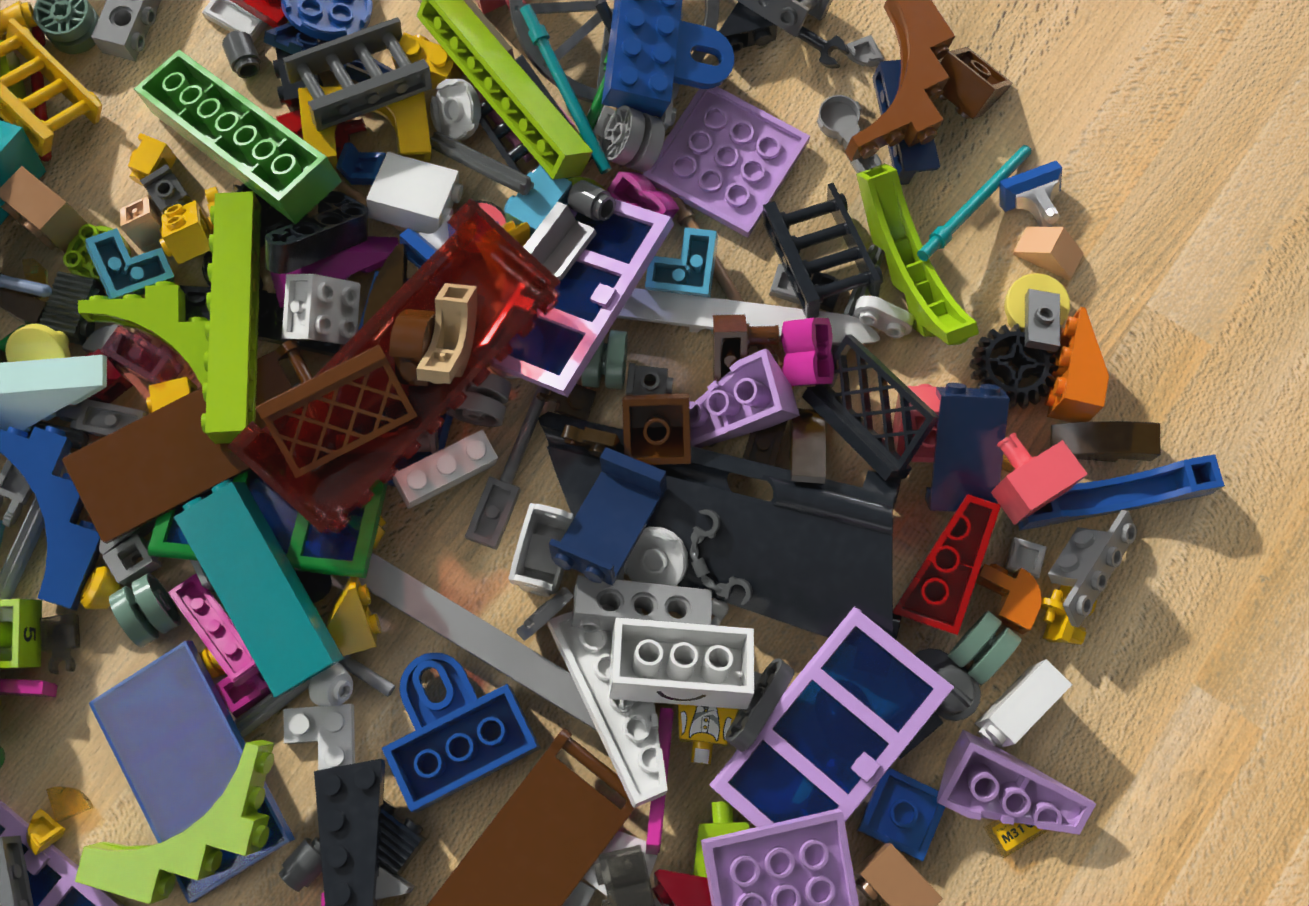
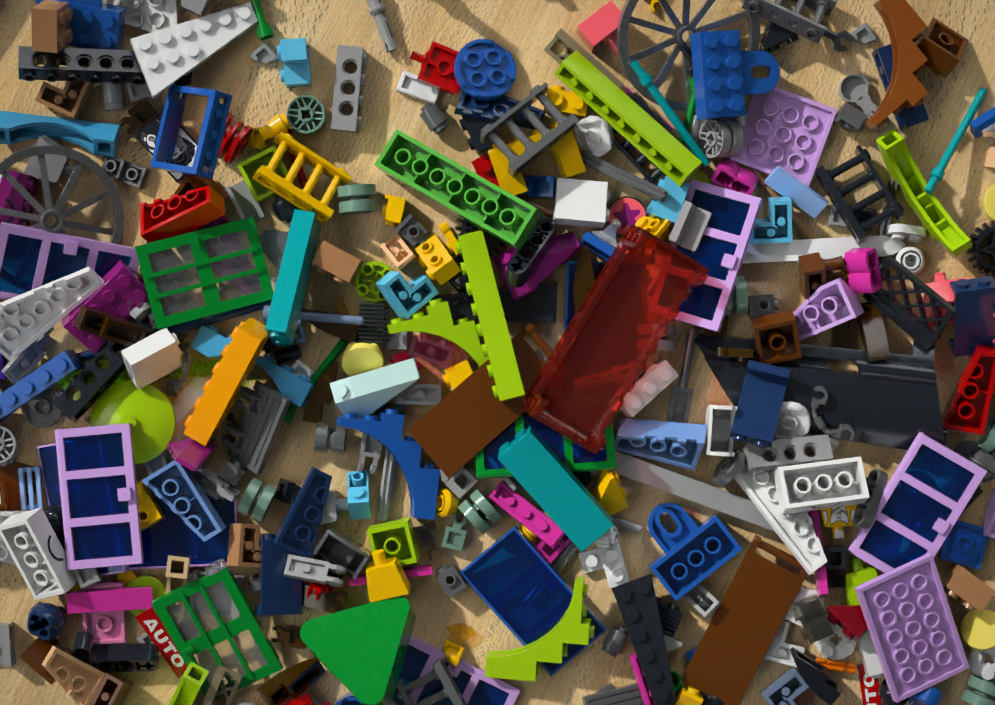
camera: 15 degrees left, 15 degrees up
(81, 718) = (450, 588): none -> dark grey brick
(99, 133) = (357, 198): none -> sand green wheel
(100, 643) = (455, 536): none -> sand green plate
(320, 308) = (542, 300): white bracket -> none
(323, 384) = (570, 355): dark orange fence -> none
(410, 342) = (617, 319): reddish brown brick -> none
(449, 553) = (661, 440): none -> medium blue wedge
(452, 334) = (639, 310): tan arch -> none
(458, 822) = (702, 600): none -> light grey slope
(591, 201) = (705, 193): dark grey brick -> none
(683, 809) = (836, 565): none -> black slope
(732, 234) = (799, 193): none -> light blue tile
(826, 151) = (850, 118): none -> dark grey brick
(888, 353) = (913, 257): none -> white cone

